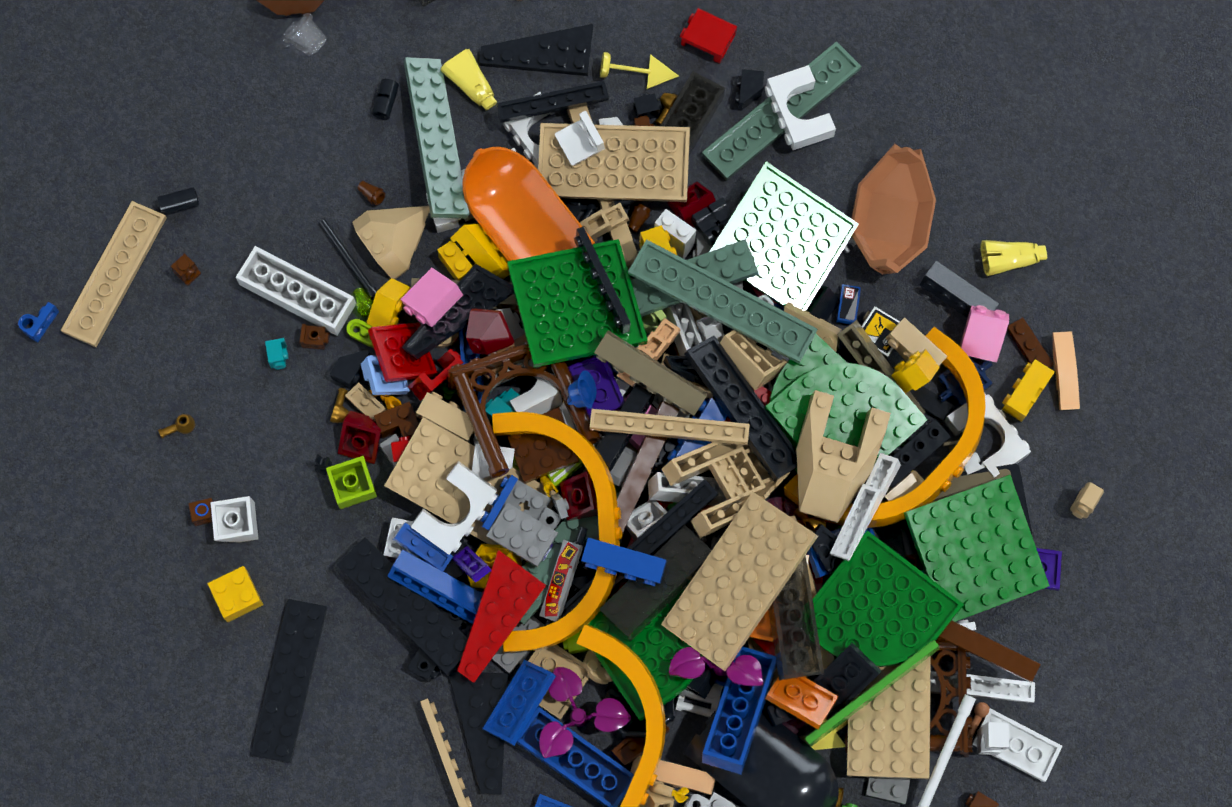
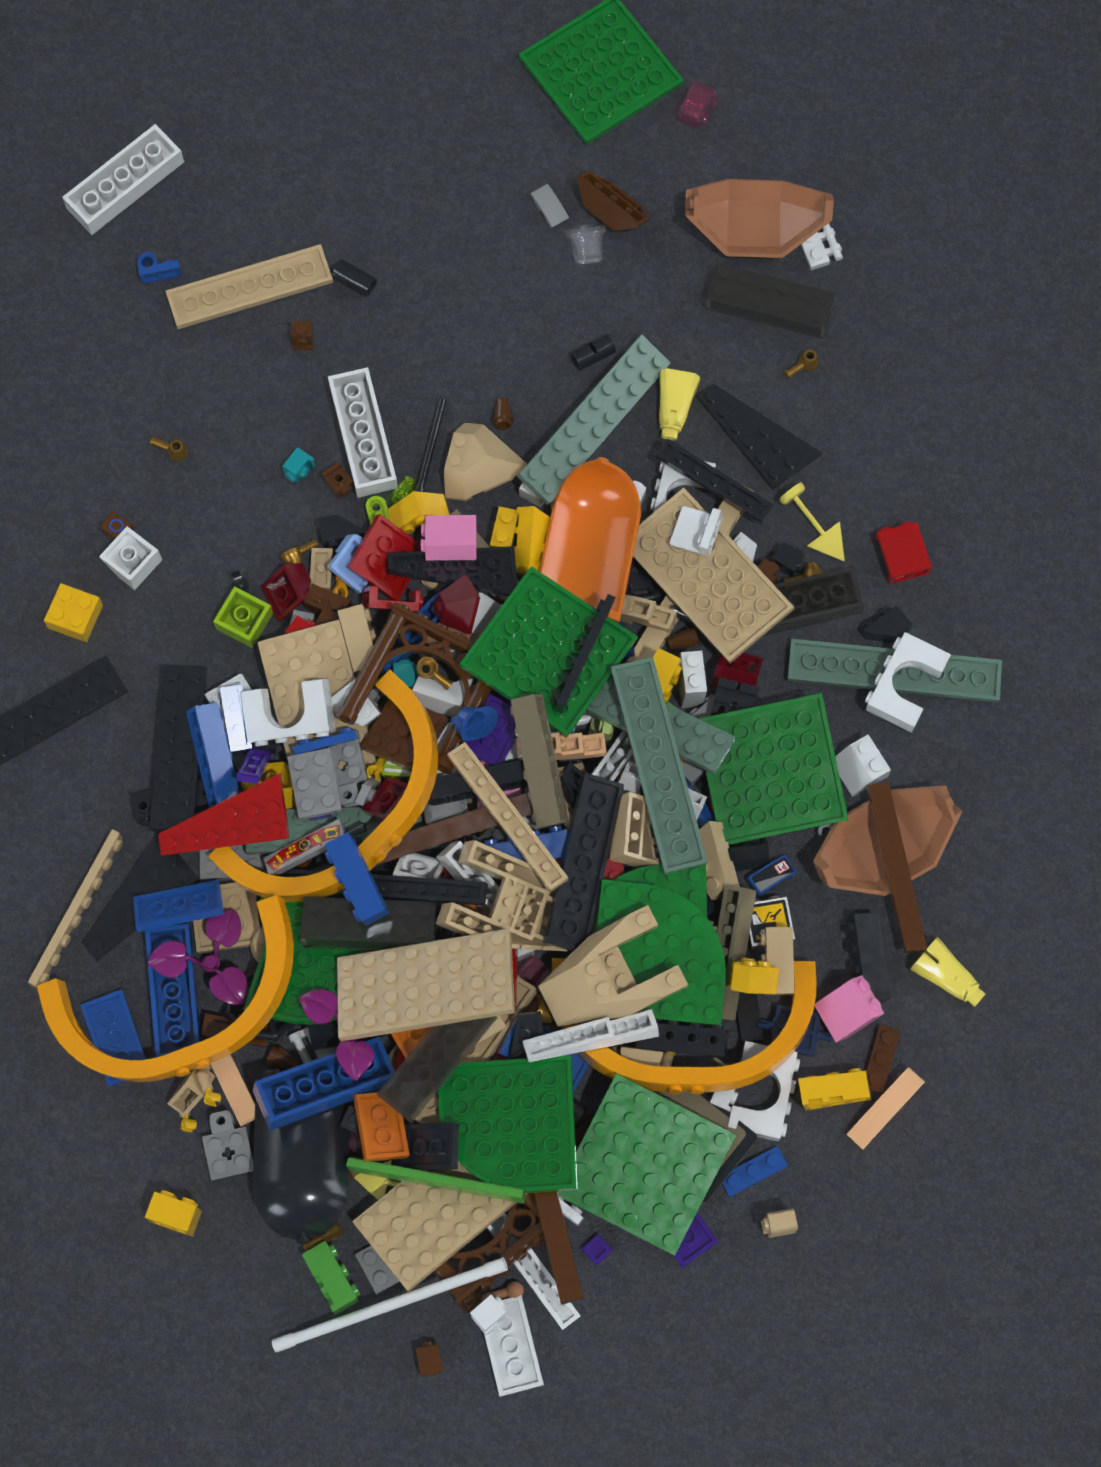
camera: 50 degrees right, 0 degrees up
(255, 35) = (549, 205): none -> light grey slope
(517, 389) = (432, 667): none -> pearl gold bar
(686, 727) = (281, 1058): none -> reddish brown cone
(828, 183) = (861, 766): none -> white slope
(916, 222) = (896, 867): none -> reddish brown tile
(1000, 632) = (597, 1249): none -> dark purple tile
(1035, 486) = (754, 1171): none -> blue plate

